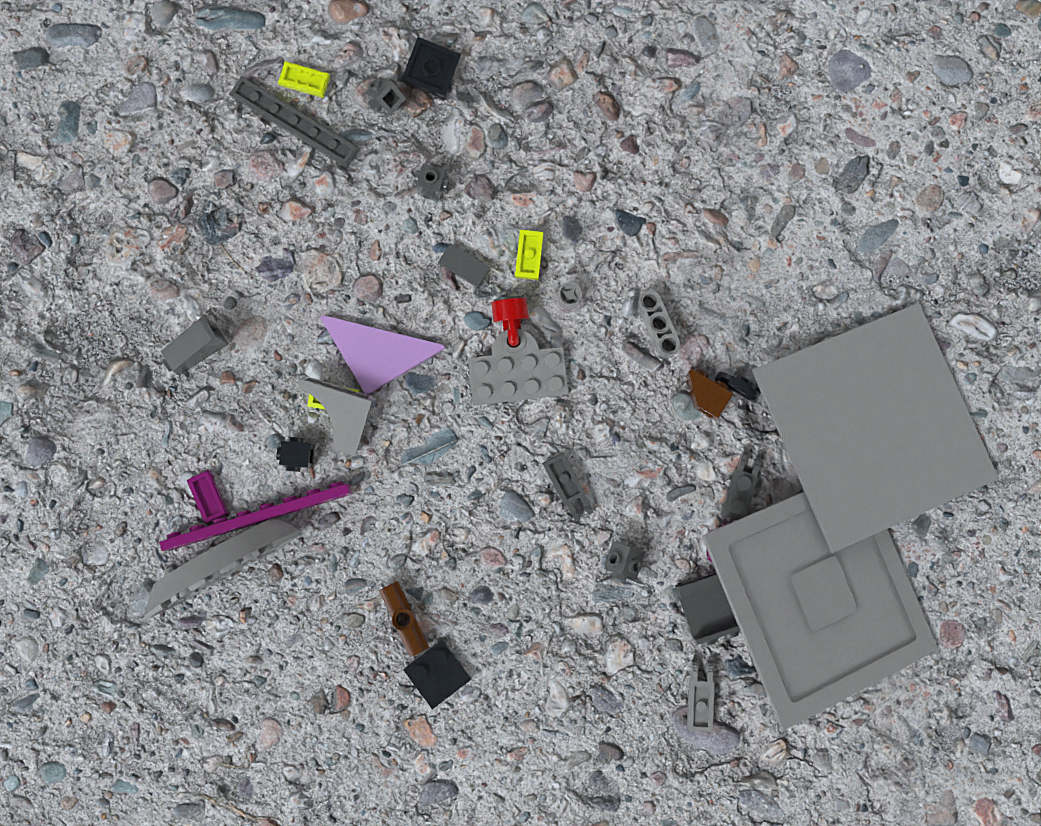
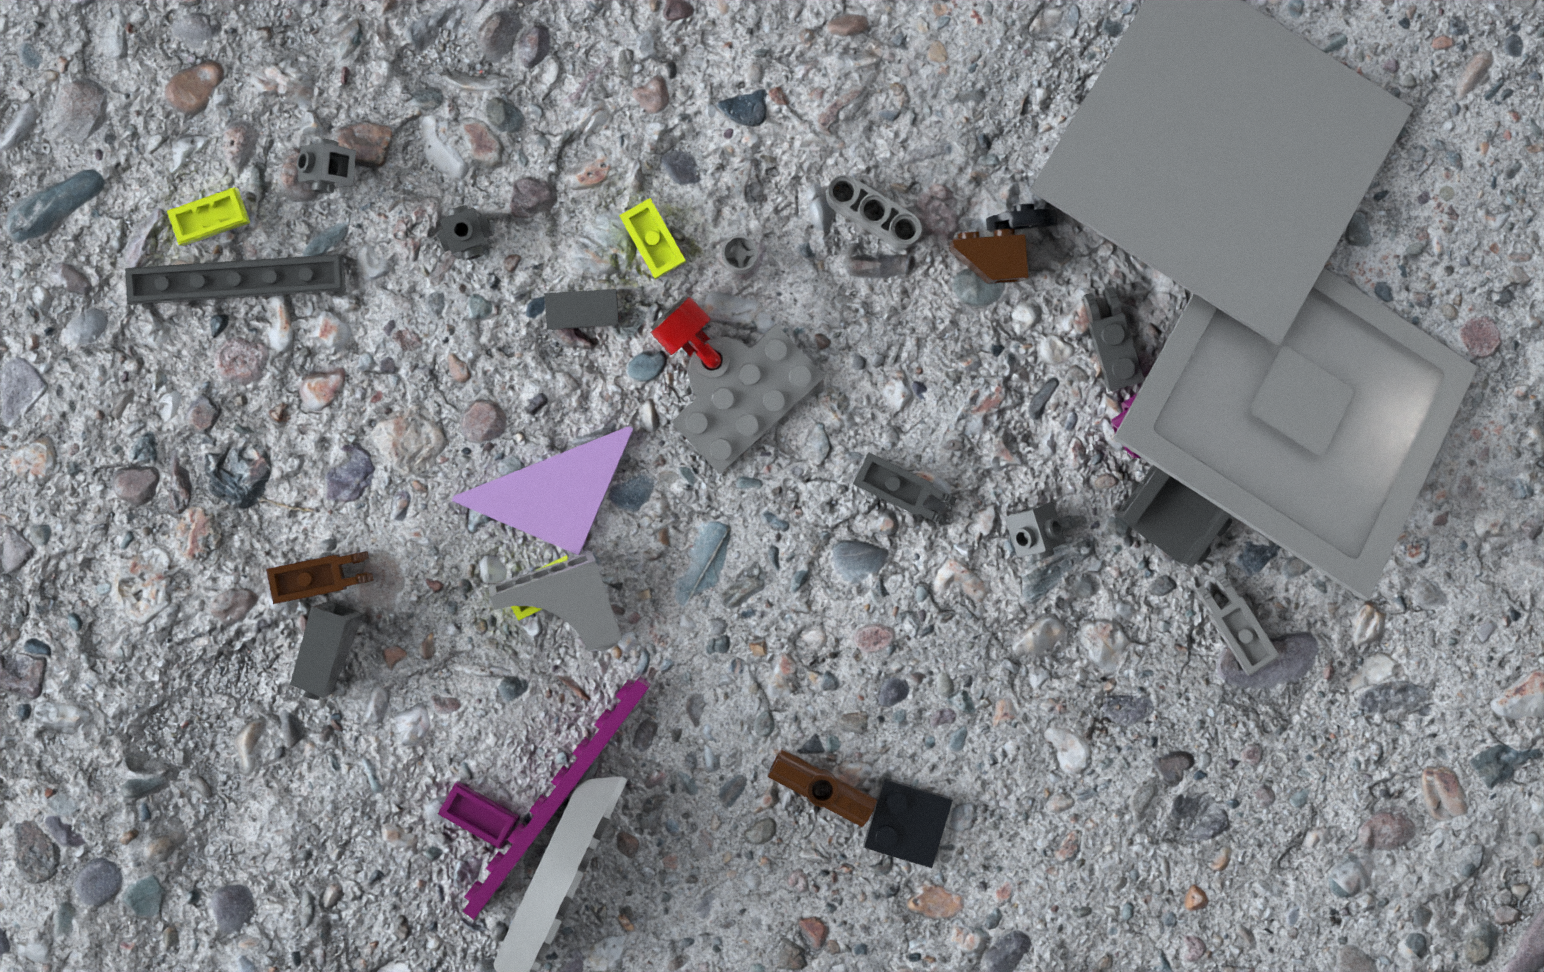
camera: 35 degrees left, 5 degrees up
(217, 305) = (314, 577): none -> reddish brown hinge
(295, 454) = (547, 688): black brick -> none
(431, 67) = (357, 87): black plate -> none

